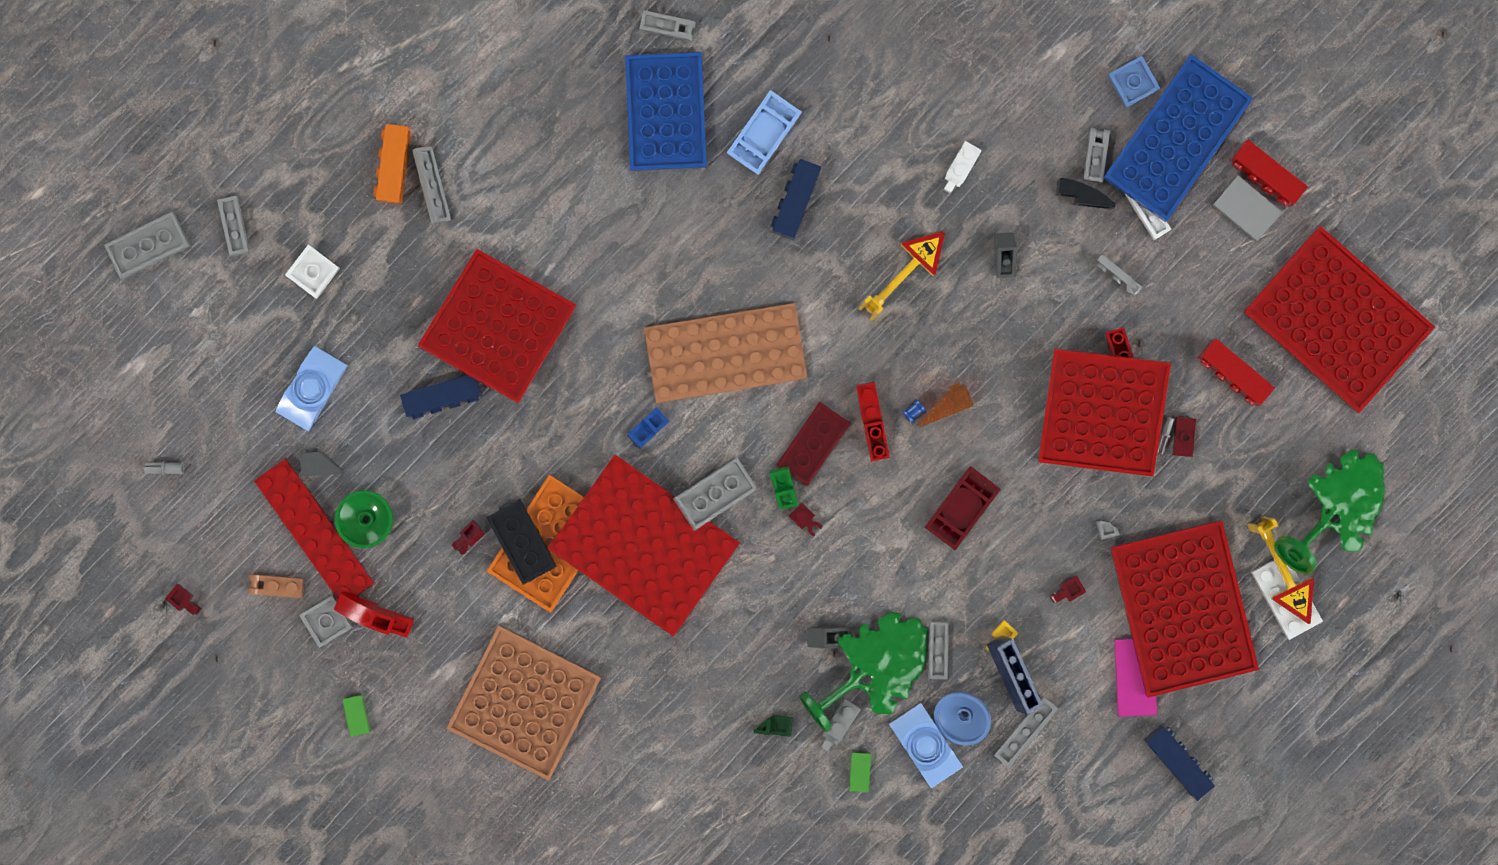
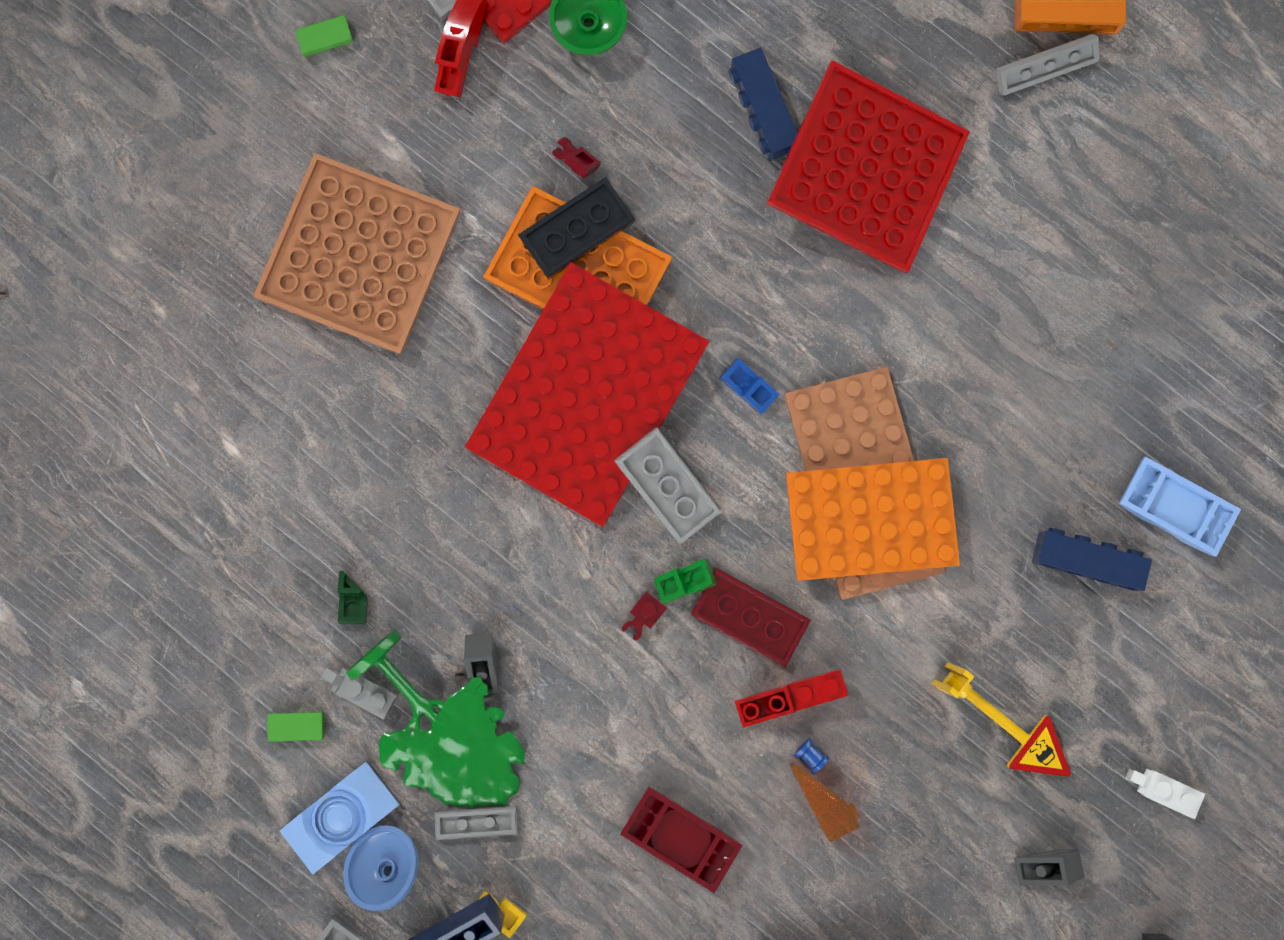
camera: 90 degrees right, 5 degrees down
(665, 111) = (1190, 368): blue plate -> none
(753, 351) = (872, 519): none -> orange plate

